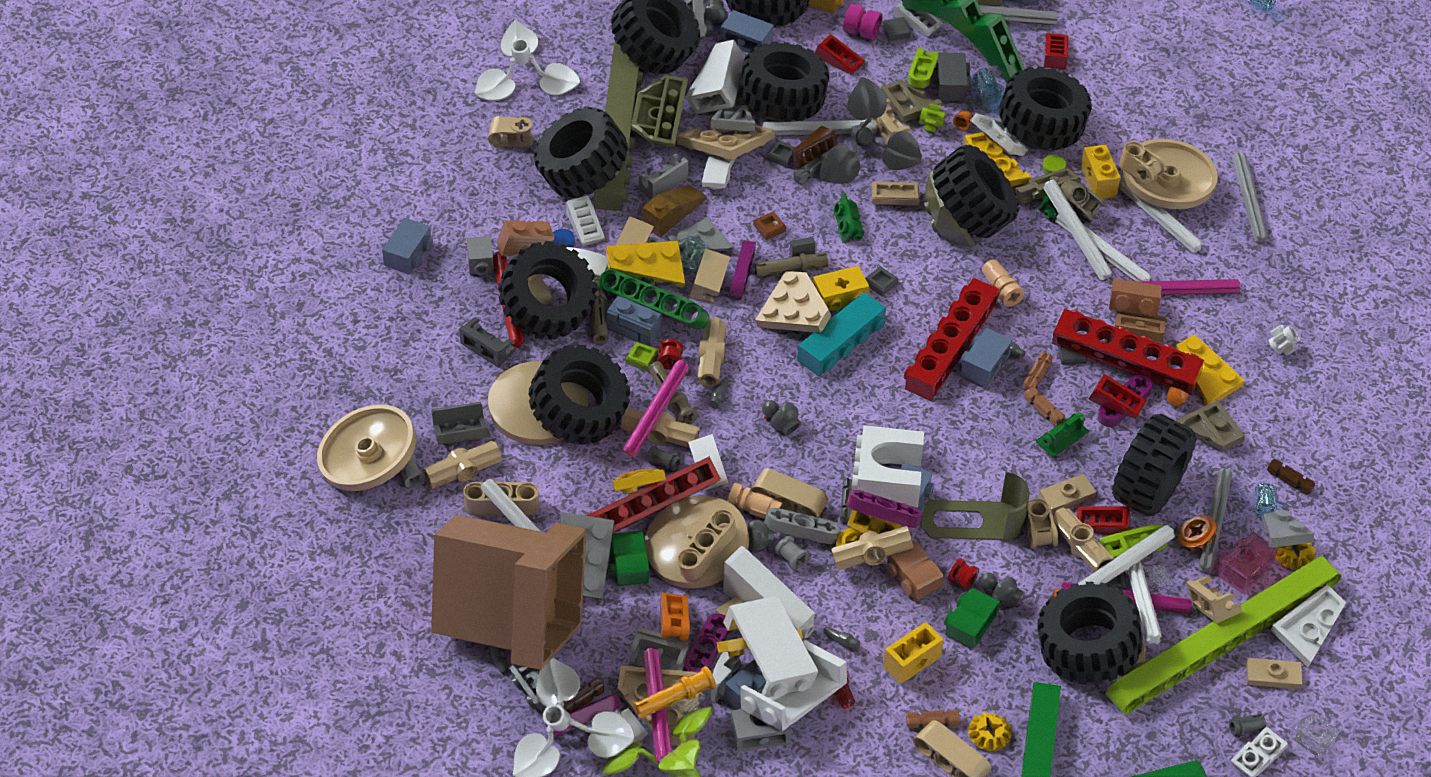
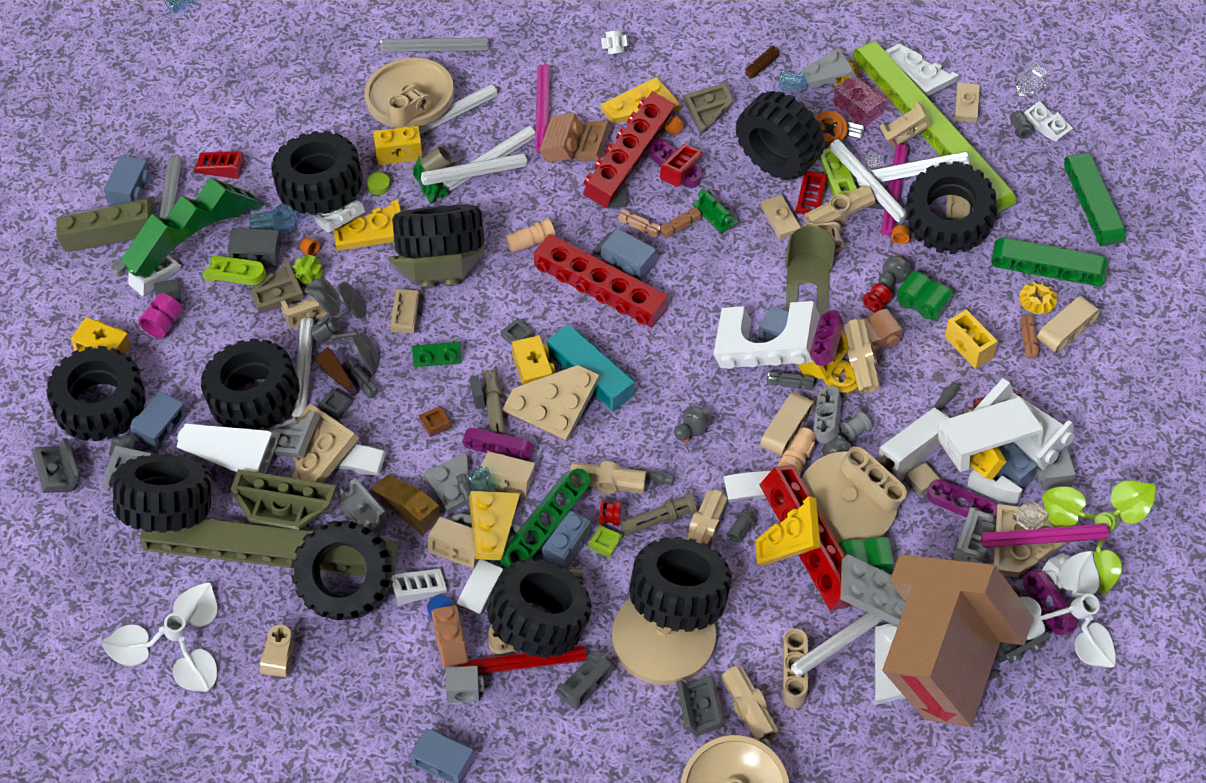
camera: 85 degrees left, 5 degrees up
(656, 408) = (694, 520): dark pink axle -> none
(674, 616) = (941, 519): orange plate -> none
(686, 688) = (1036, 504): light orange pin -> none
(830, 57) = (192, 356): red slope -> none
(1035, 190) = (406, 186): dark tan hinge -> none

